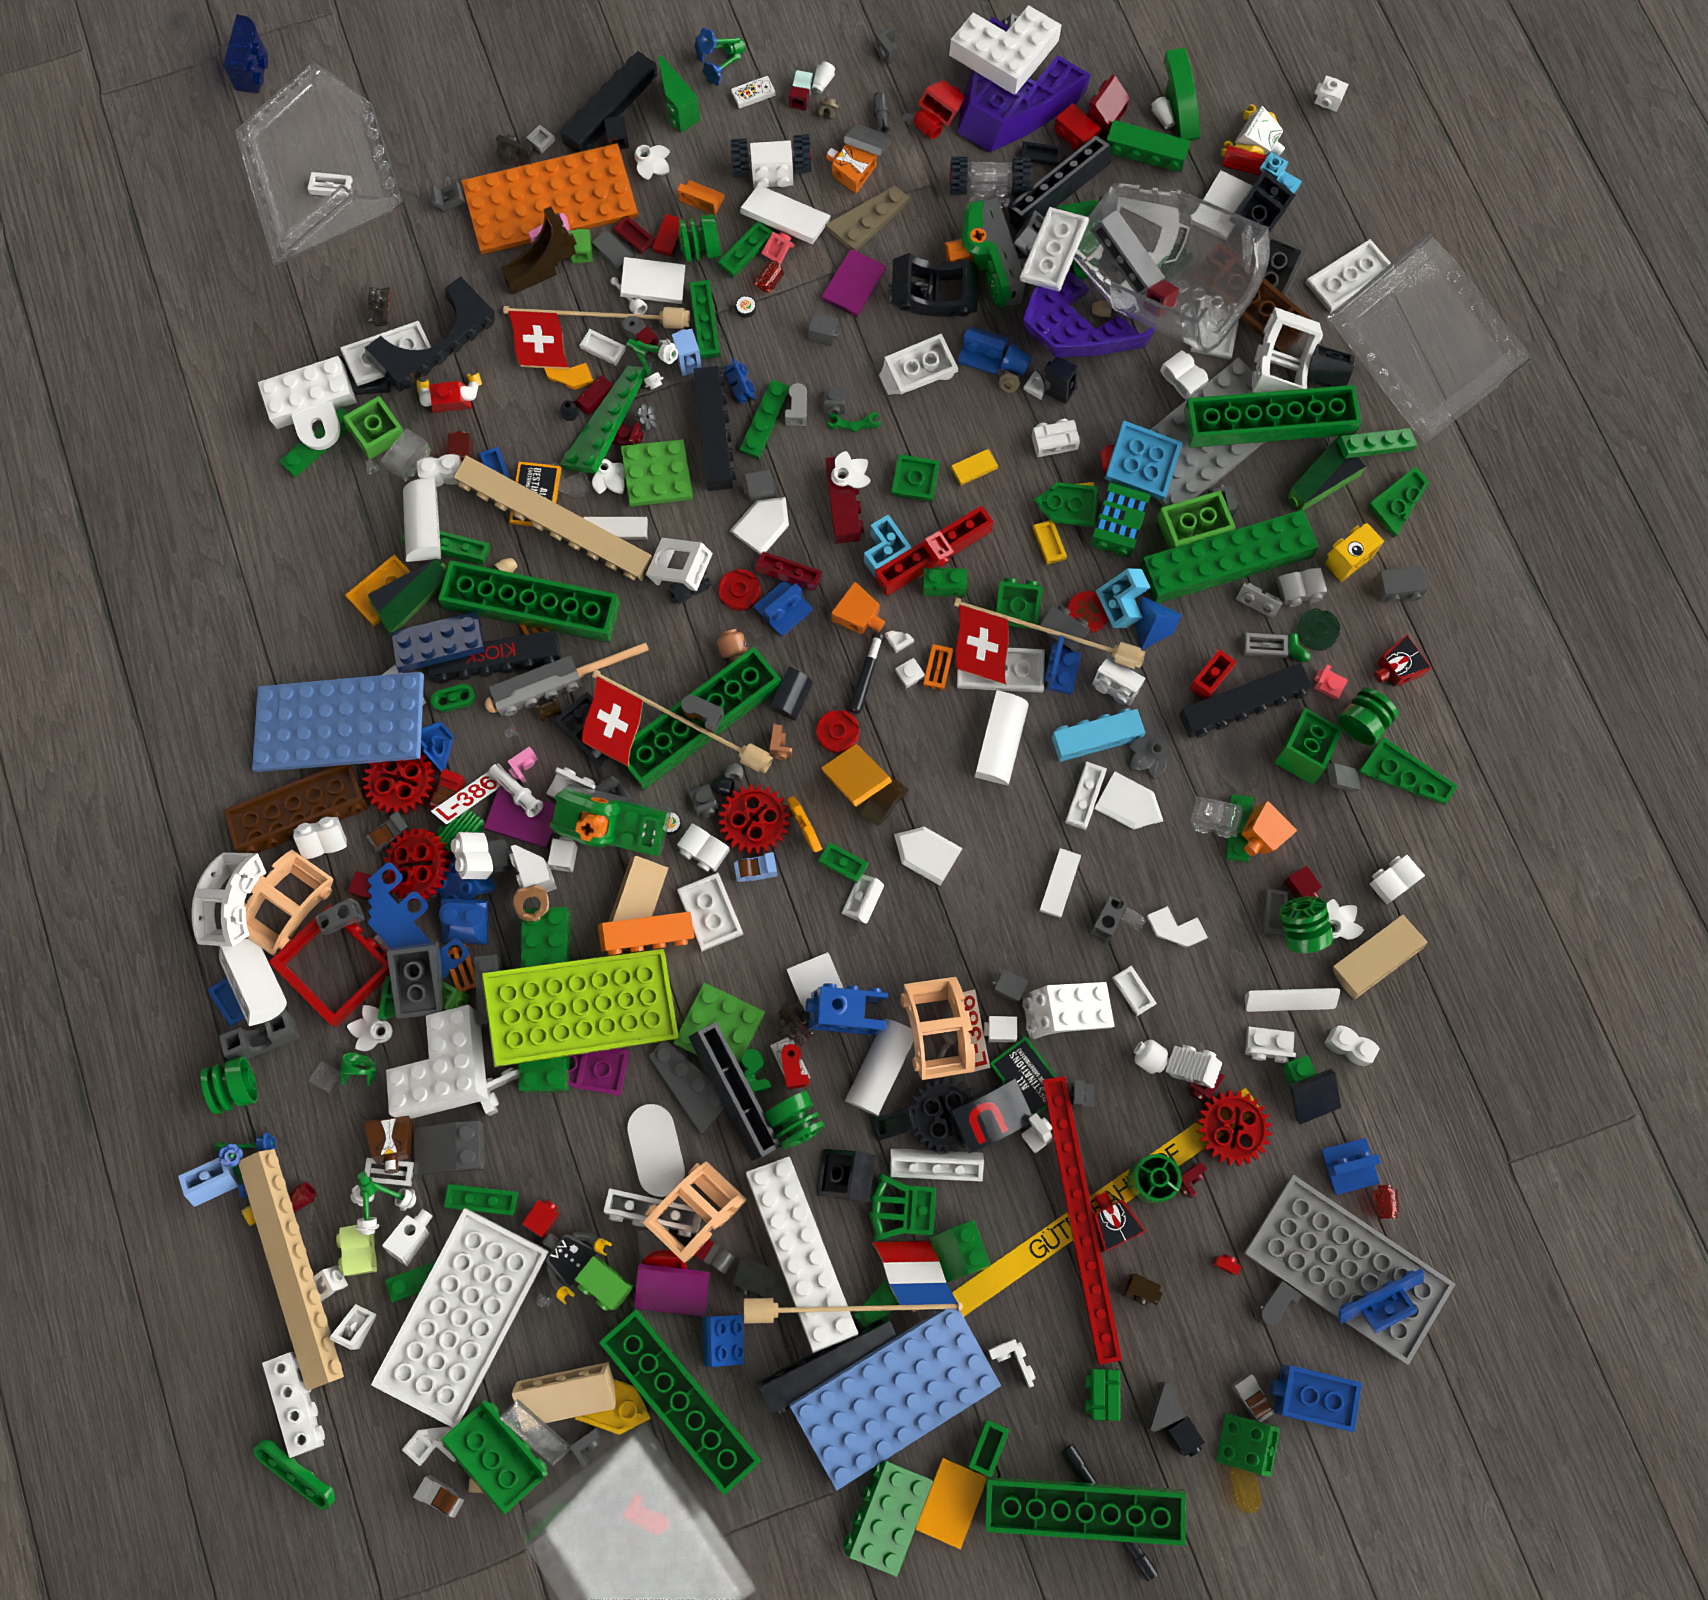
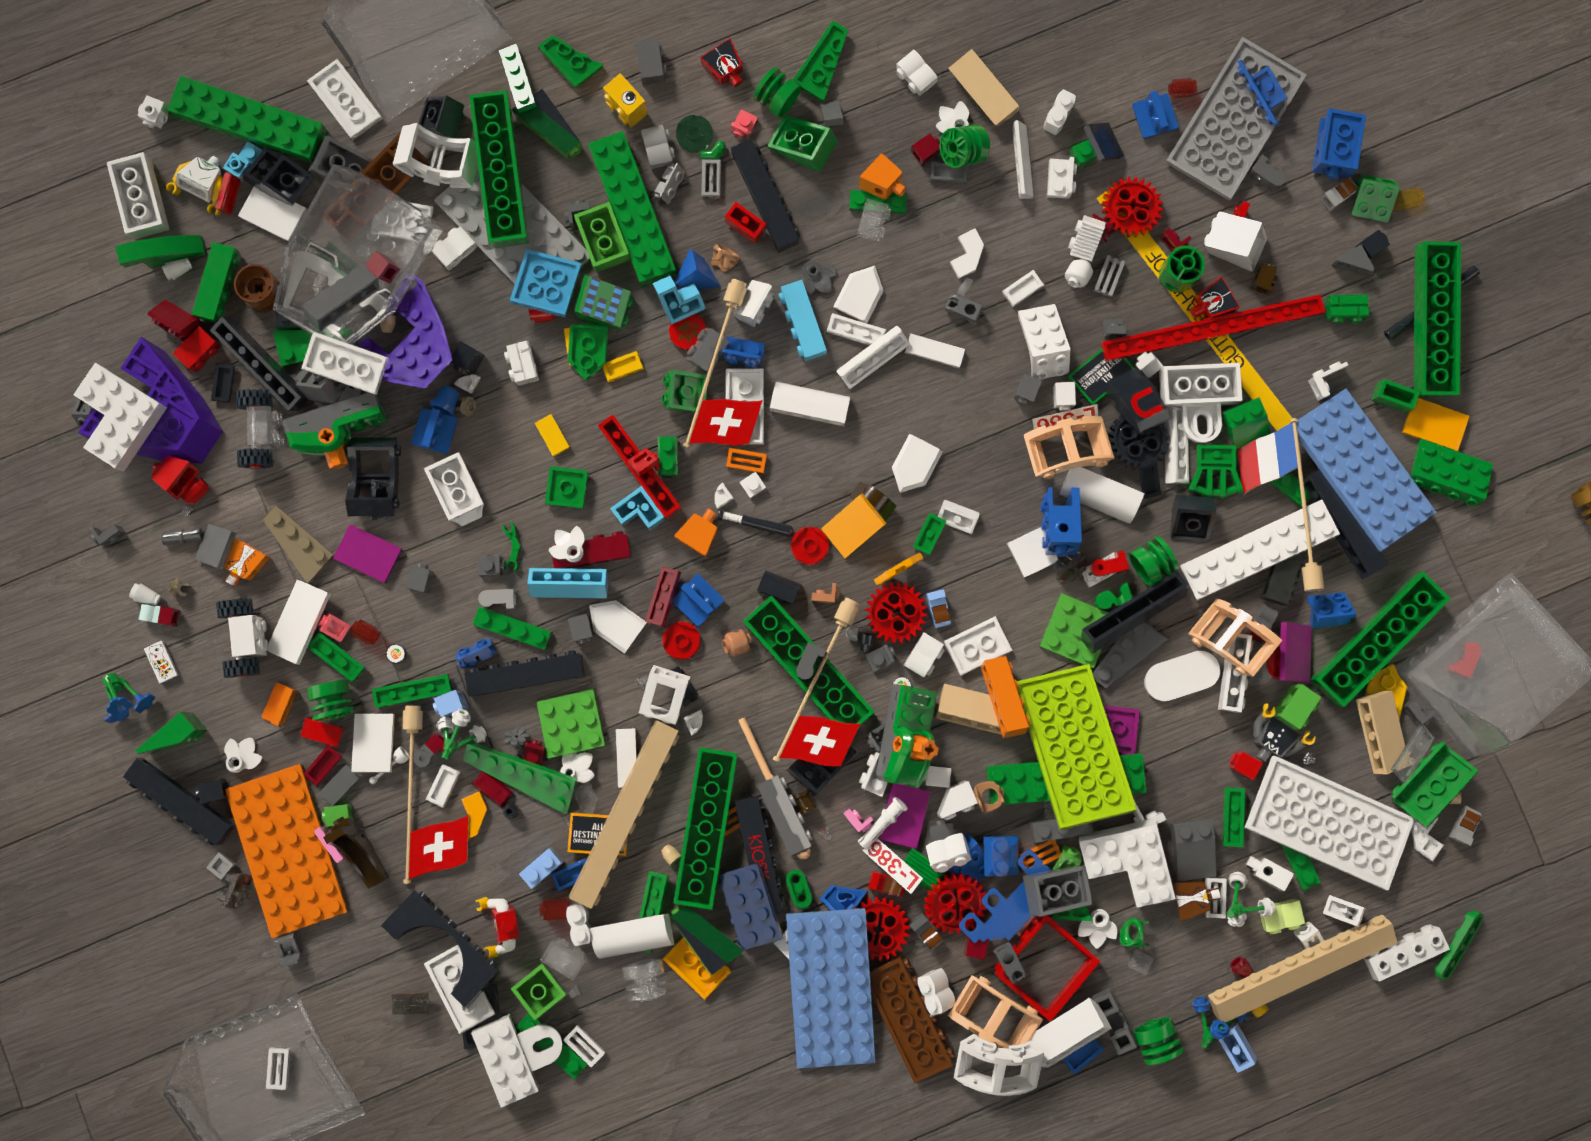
camera: 95 degrees left, 10 degrees up
(316, 476) = (573, 1034): none -> white tile
(368, 531) = (645, 980): none -> clear wheel
(505, 436) = (541, 867): none -> light blue brick
(648, 599) = (694, 721): none -> white tile
(809, 472) = (568, 583): none -> medium azure brick
(1000, 1195) = (1201, 392): none -> white brick
(1053, 811) = (873, 357): none -> white slope
(1145, 172) = (251, 281): none -> reddish brown wheel
(1166, 1103) = (1114, 261): none -> light grey tile
(1173, 653) = (724, 257): none -> medium nougat piece
(1191, 1256) = (1236, 240): none -> white slope
(1240, 76) = (138, 196): none -> white brick
(1325, 178) = (246, 119): none -> green brick

